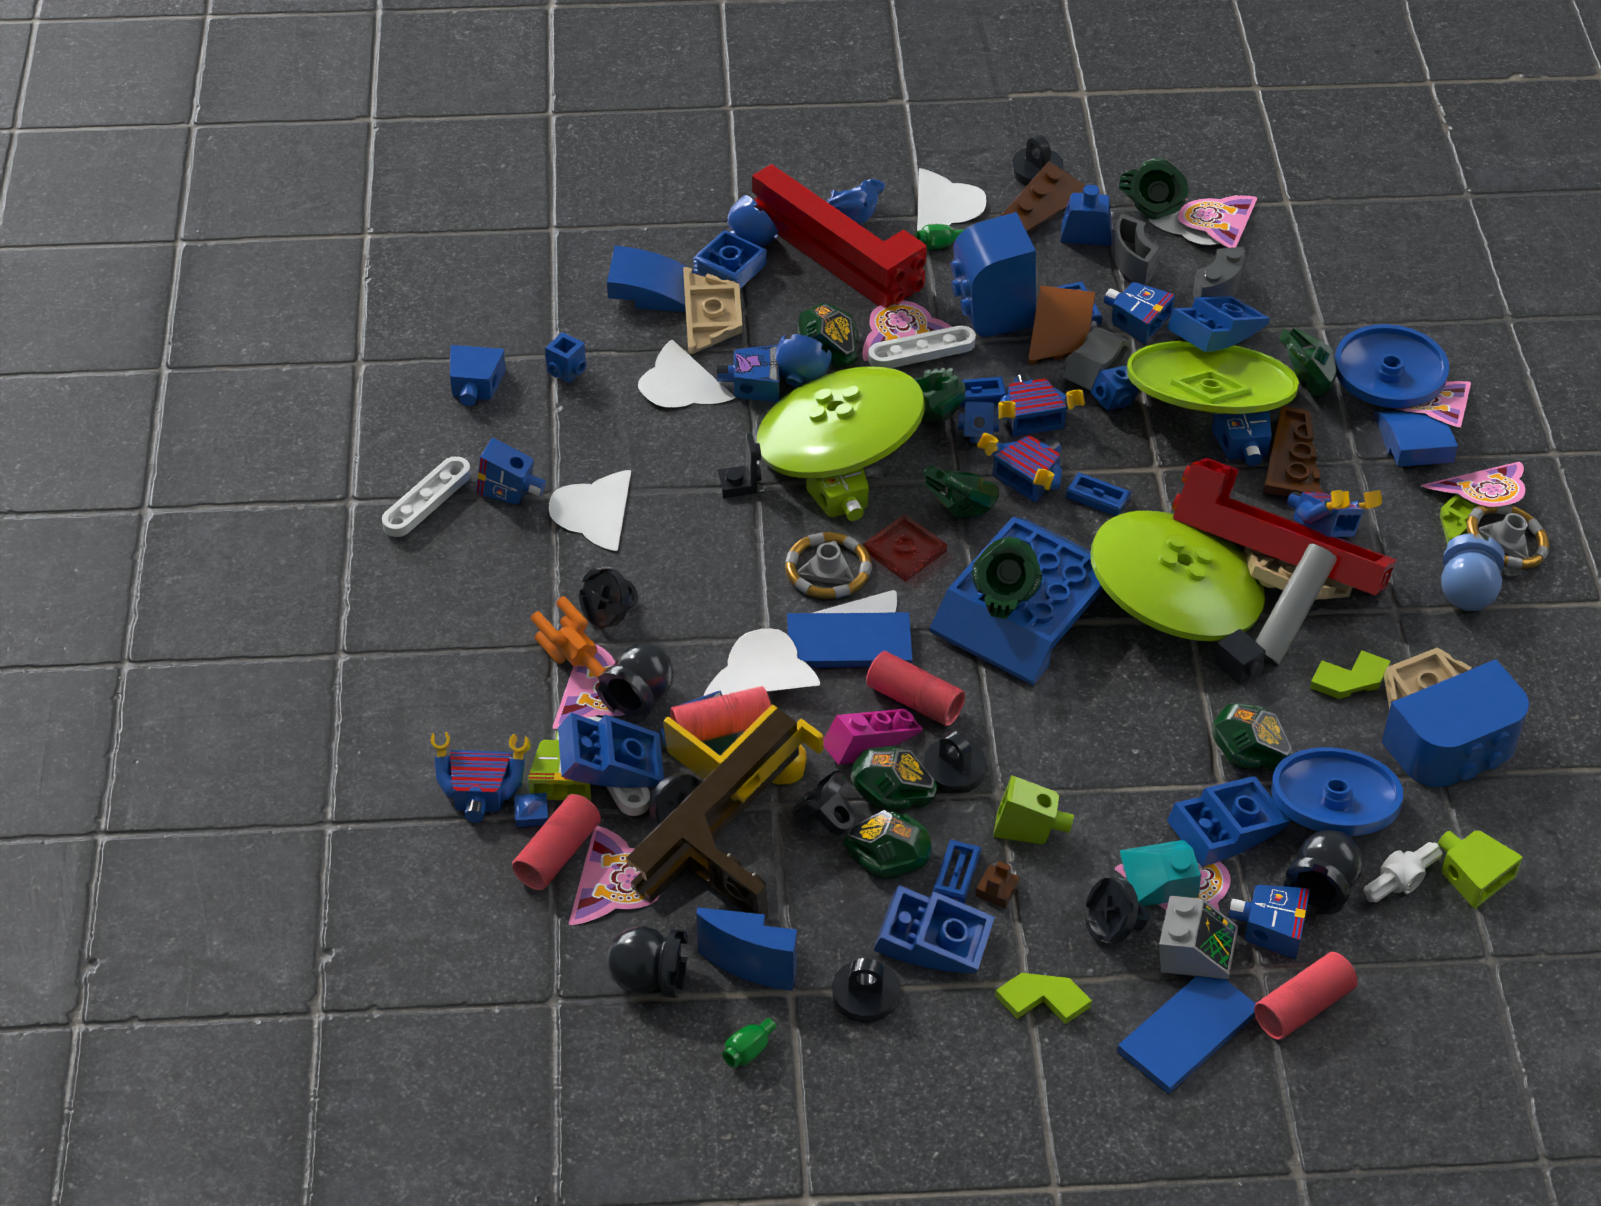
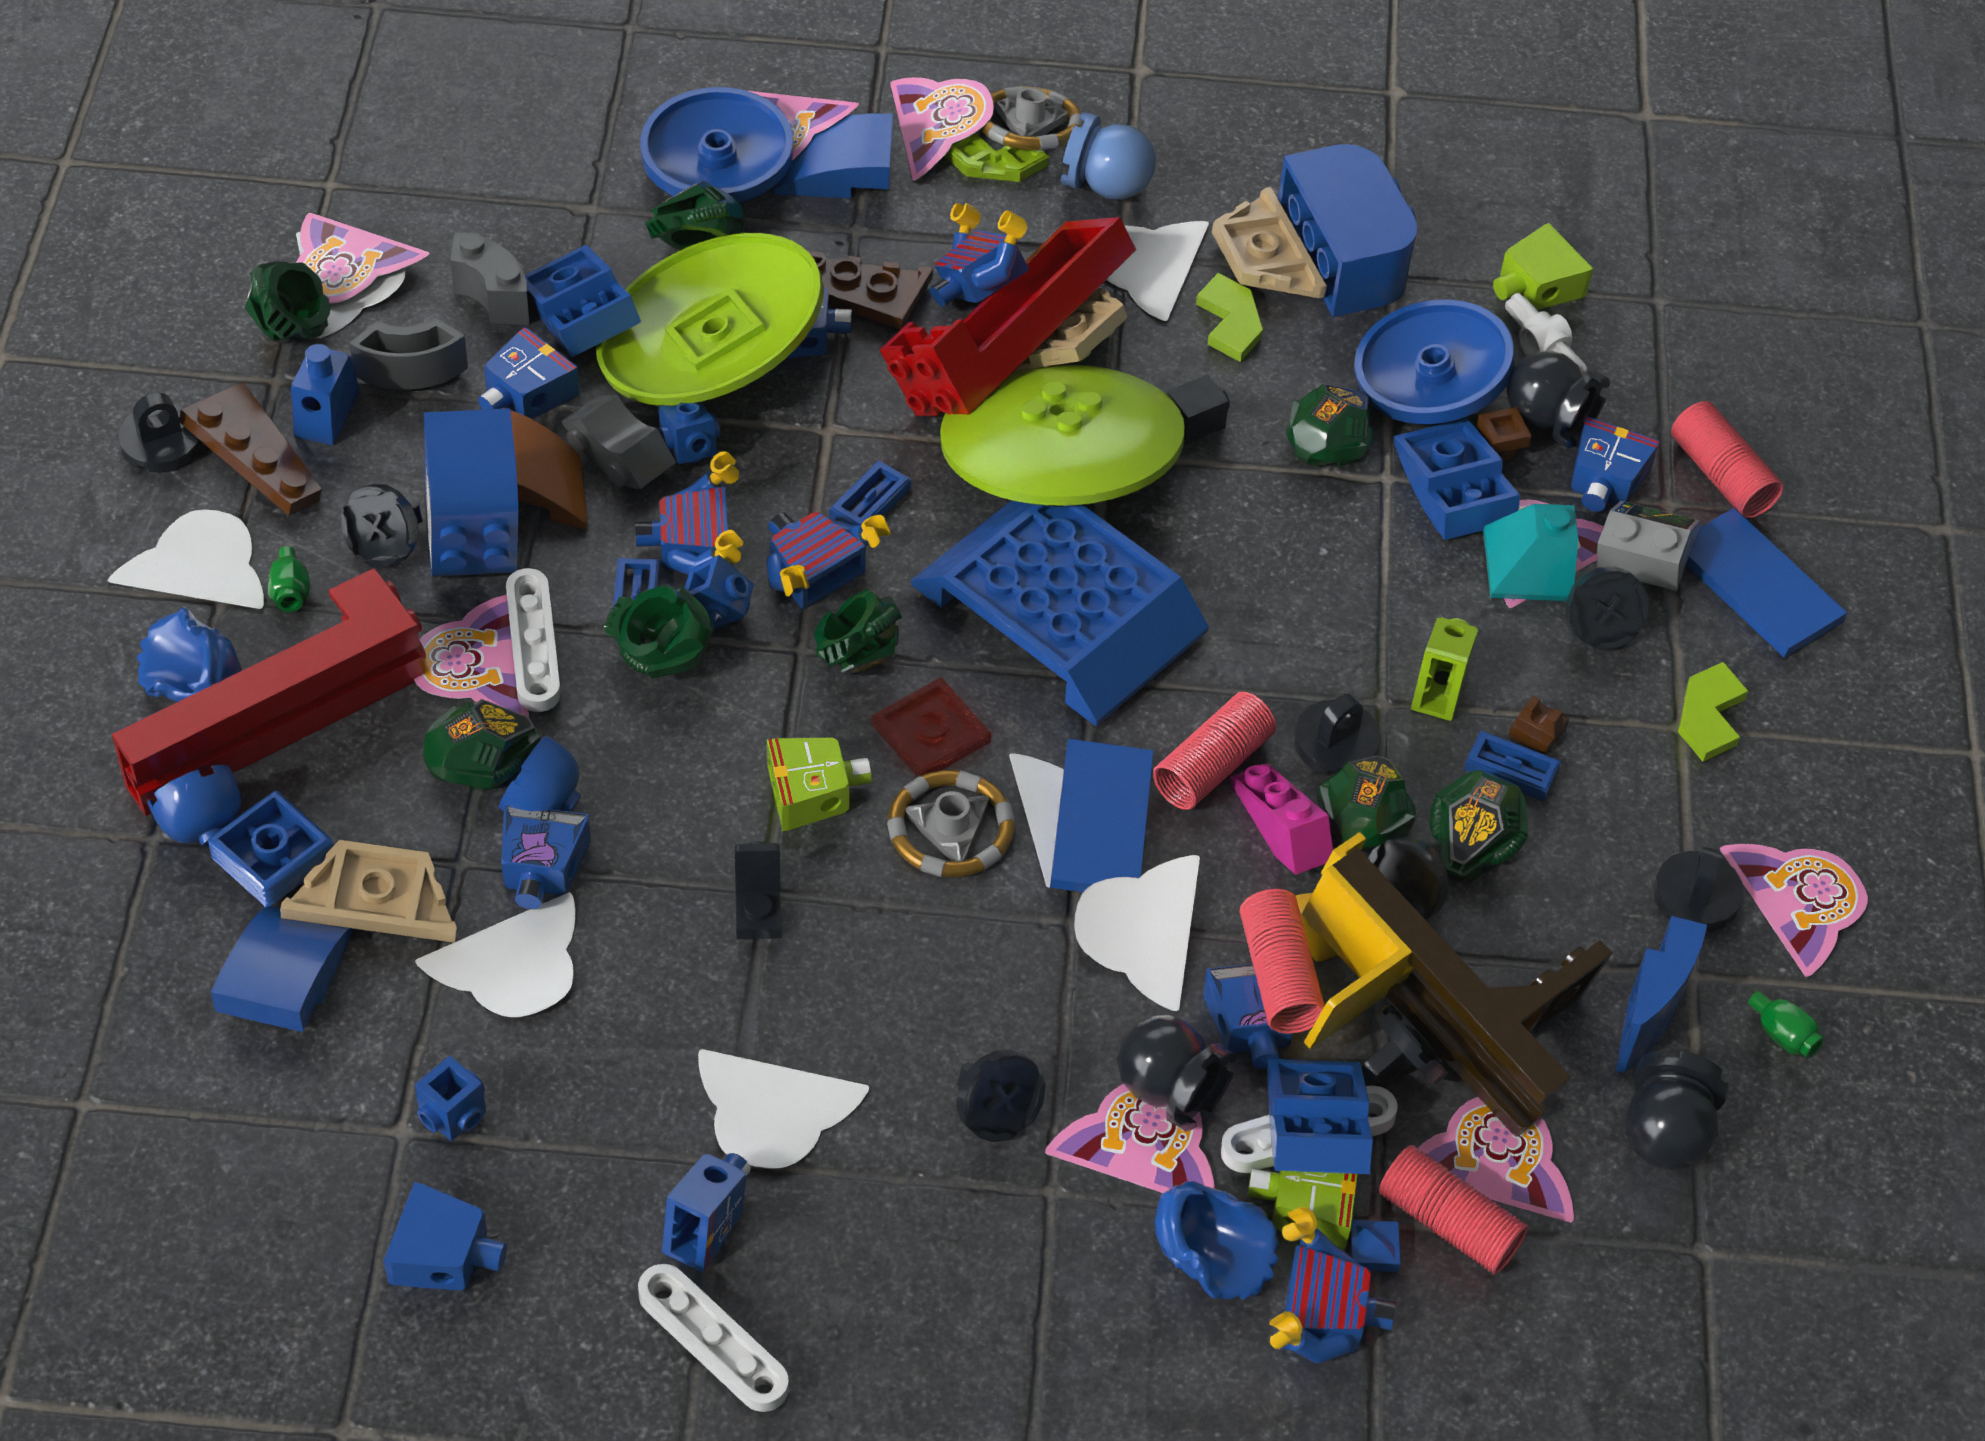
camera: 85 degrees left, 5 degrees up
(515, 708) = (1217, 1239): none -> blue piece
(569, 641) = (1073, 1152): orange plant -> none
(841, 422) = (744, 781): lime dish -> none
(879, 1064) = (1802, 896): none -> sticker
(934, 932) = (1616, 803): blue slope -> none
(1006, 575) = (1073, 584): dark green helmet -> none
(1280, 842) = (1504, 431): none -> reddish brown tile
(1295, 602) = (1138, 324): light grey brick -> none
(1392, 622) = (1159, 265): none -> white sticker

